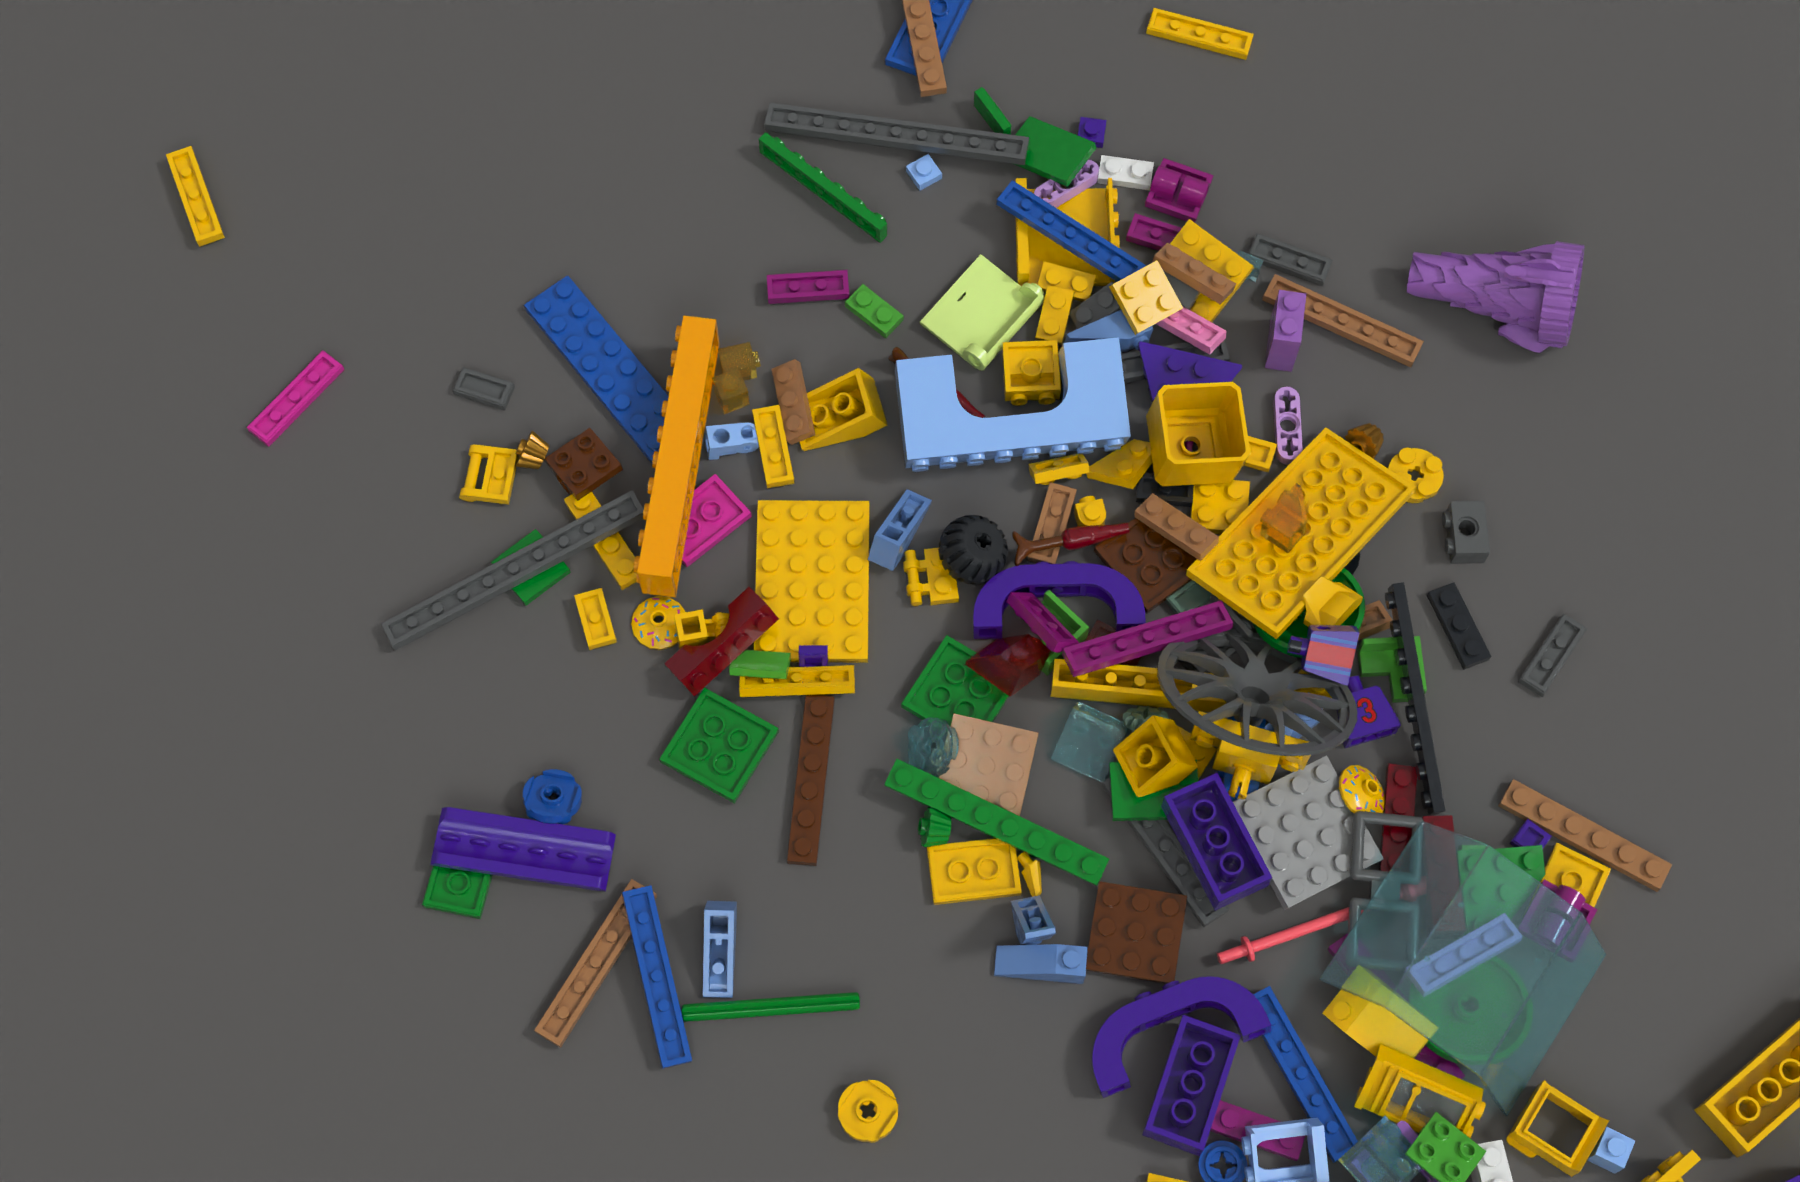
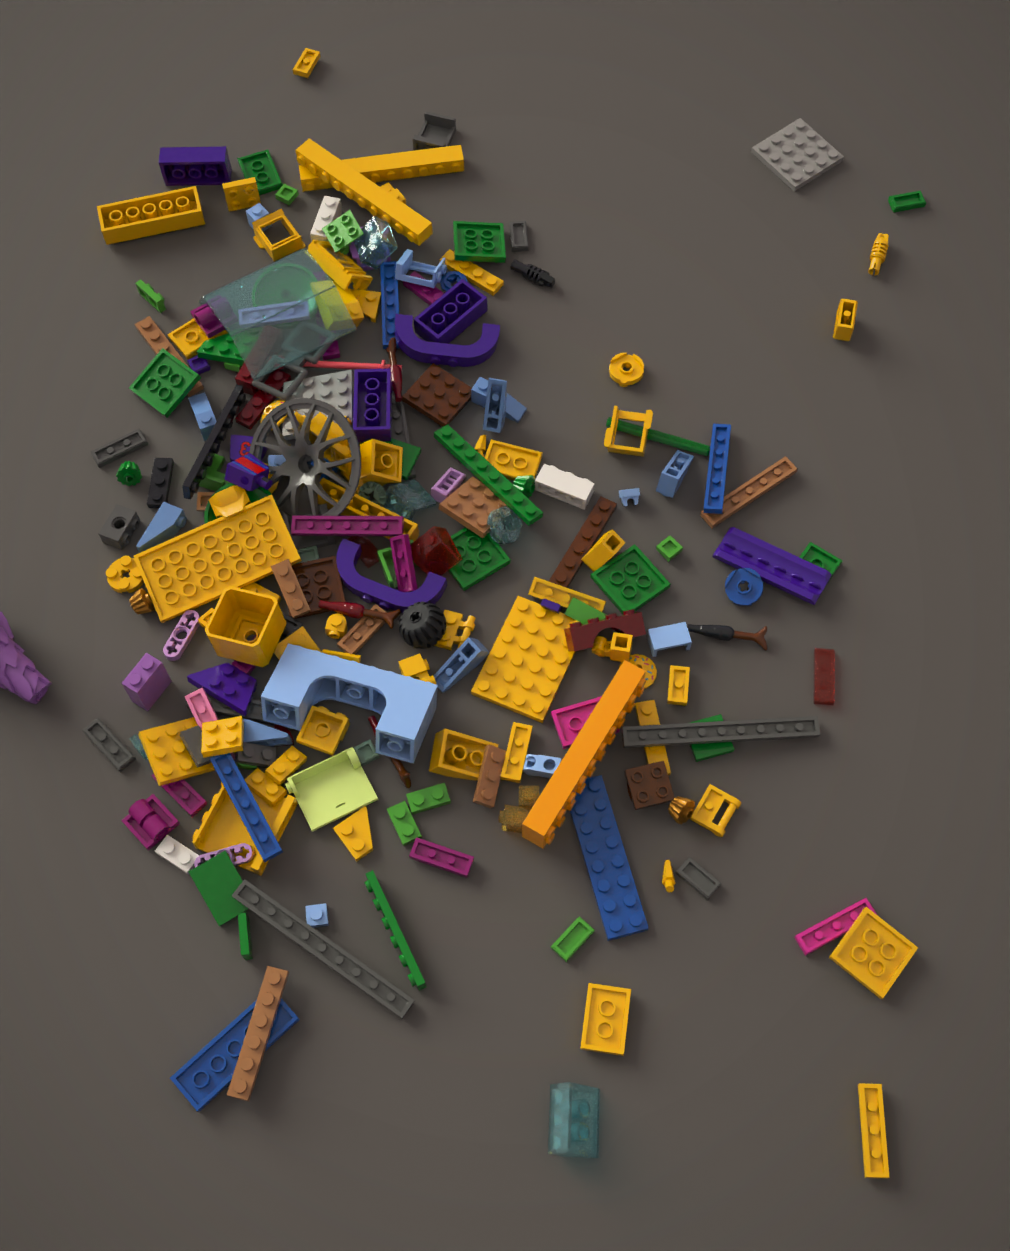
camera: 155 degrees left, 5 degrees down
(240, 377) = (873, 952): none -> yellow plate
(399, 716) = (824, 676): none -> clear red tile
(520, 373) = (668, 877): none -> yellow bar
(533, 79) = (574, 1120): none -> clear light blue slope
(537, 191) = (605, 1019): none -> yellow plate
(554, 722) = (727, 633): none -> black piece
(610, 263) = (572, 939): none -> bright green tile
(631, 676) = (668, 637): none -> light blue panel
(682, 818) = (669, 548): none -> bright green plate
(773, 770) = (603, 550): none -> yellow slope
(774, 882) = (629, 493): none -> light blue tile
(814, 954) = (610, 434): none -> yellow piece
(859, 350) = (428, 798): none -> bright green plate
(875, 855) = (564, 486): none -> white brick
(926, 275) = (356, 834): none -> yellow wing
(951, 498) = (416, 668): none -> yellow brick
(967, 374) = (366, 752): none -> sand green tile
(1060, 782) = (440, 493): none -> lavender slope
(1092, 130) = (182, 896): dark purple plate -> none
(1194, 273) = (181, 740): medium nougat plate -> none
(1199, 33) = (59, 944): yellow tile -> none
(1221, 936) = (396, 371): none -> dark red piece
(1286, 521) = (223, 558): clear yellow slope -> none
(1341, 1062) = (369, 302): none -> yellow wing
(1350, 323) = (104, 686): medium nougat plate -> none
(1410, 557) = (163, 526): none -> medium blue slope
(1467, 754) = (203, 414): none -> medium blue slope
(1508, 614) = (129, 473): none -> green piece
(1554, 774) = (165, 382): none -> green plate
(1671, 921) = (149, 295): none -> bright green plate

